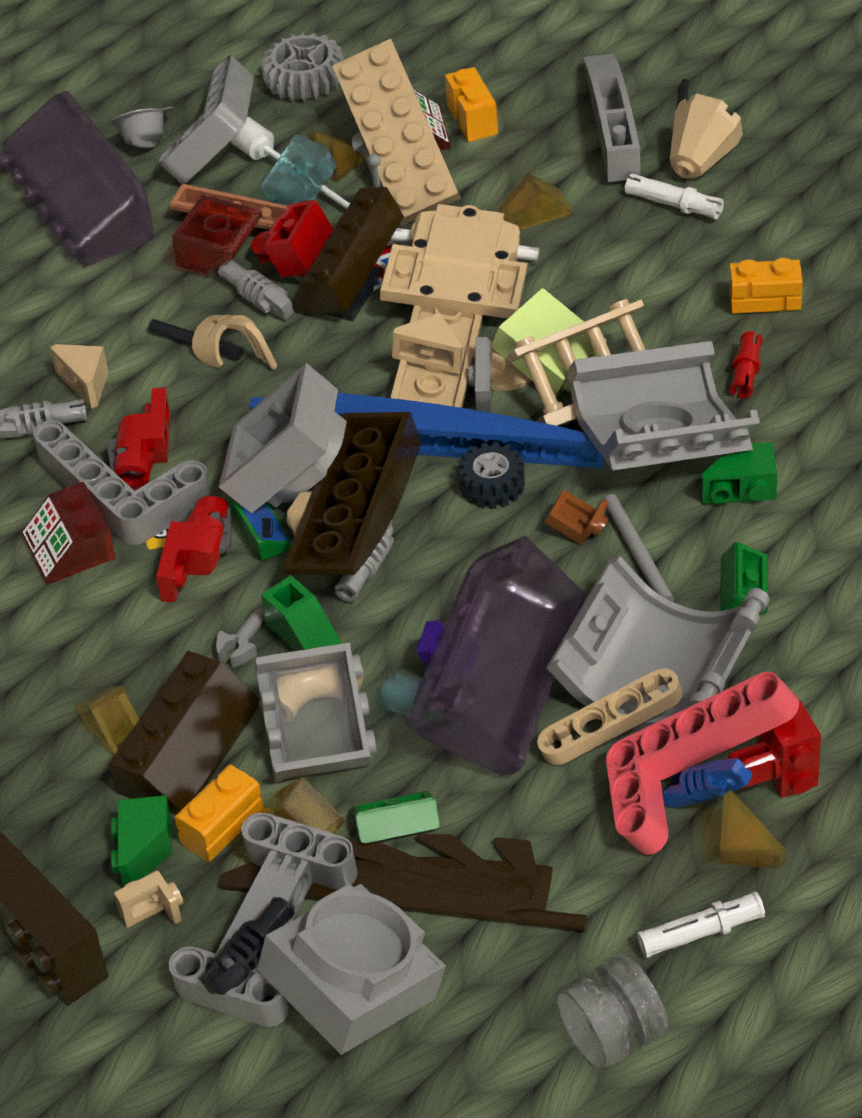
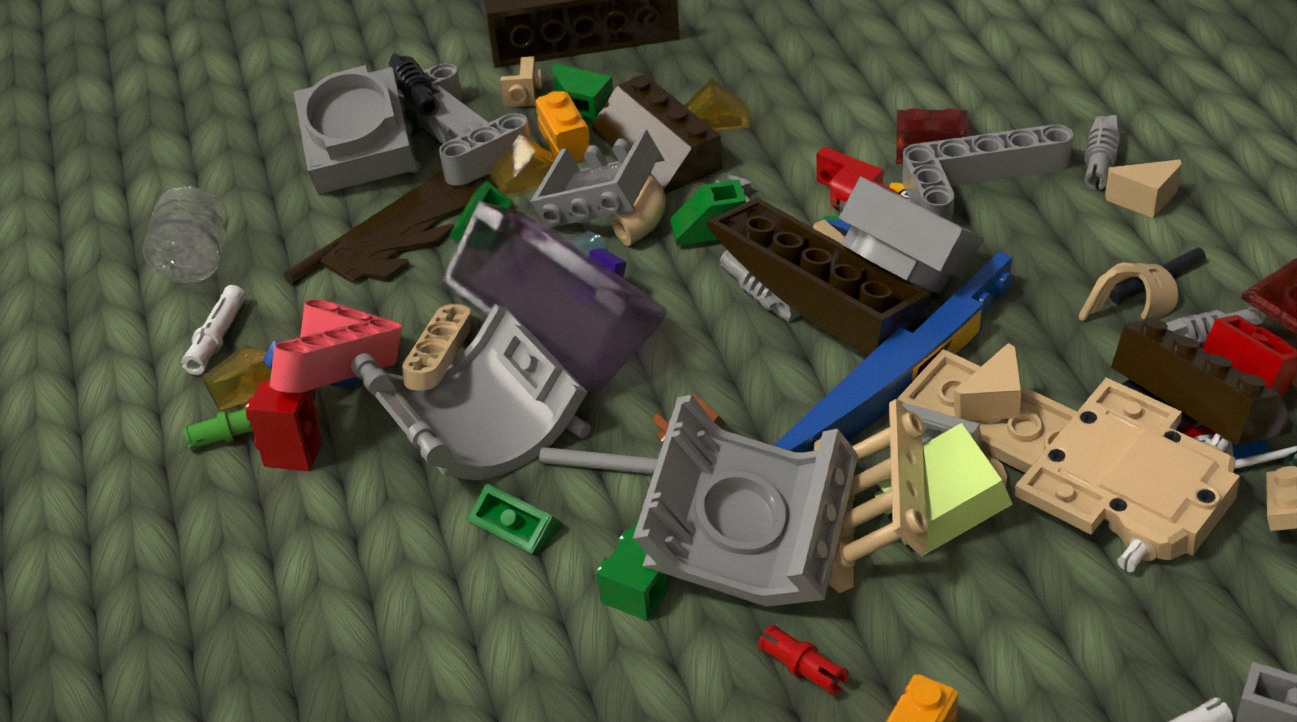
camera: 120 degrees right, 5 degrees down
(141, 441) = (1020, 199): red plate -> none
(491, 475) = (793, 391): black wheel -> none
(534, 203) = (1229, 608): clear yellow slope -> none
(808, 825) = (221, 428): none -> bright green pin

